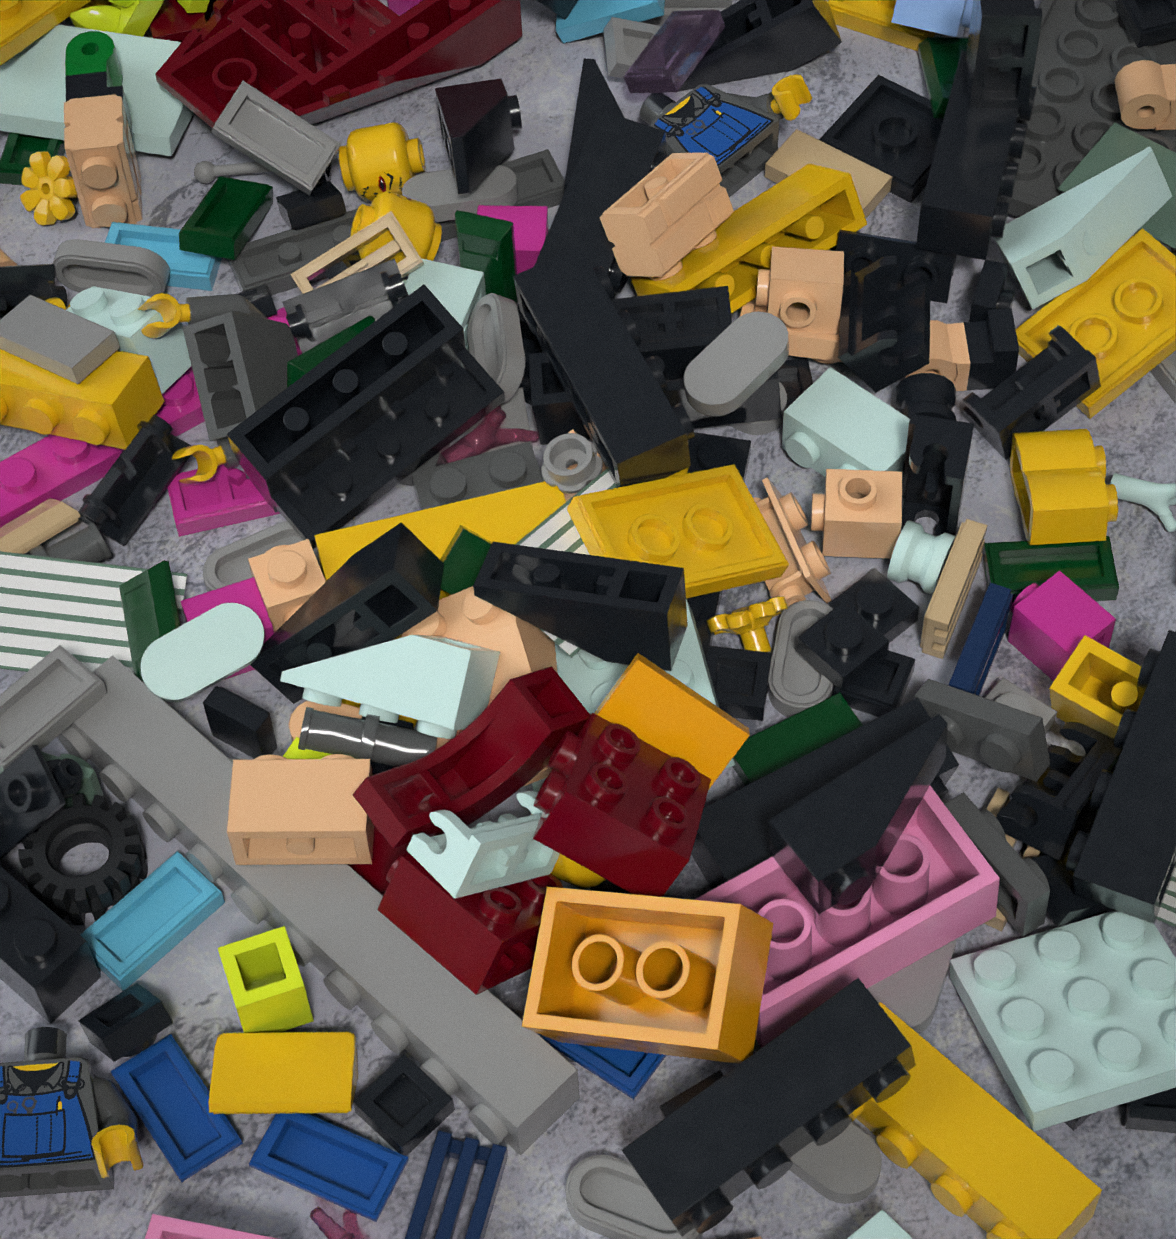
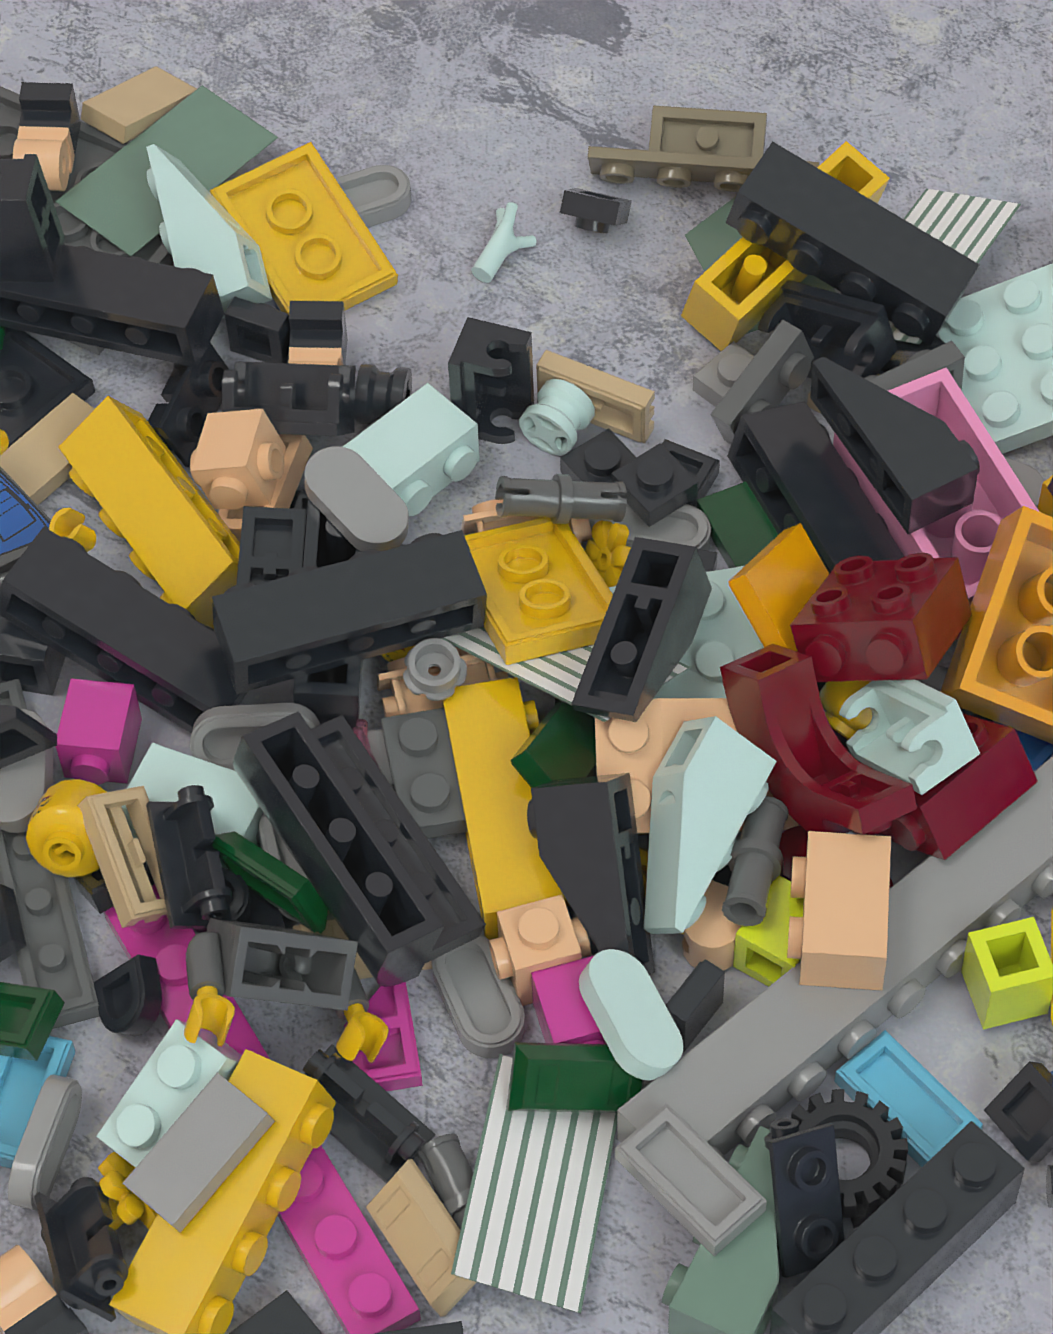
camera: 85 degrees left, 0 degrees up
(488, 247) = (133, 729): dark green tile -> none
(667, 215) = (142, 546): light nougat brick -> none
(785, 547) = (560, 499): none -> dark grey pin
(859, 513) = (506, 444): light nougat brick -> none
(983, 640) = (678, 388): dark blue tile -> none
(1021, 564) = (574, 320): dark green tile -> none
(1035, 393) = (381, 305): black hinge -> none
(1053, 620) = (649, 324): dark pink brick -> none
(1062, 486) = (507, 291): yellow brick -> none

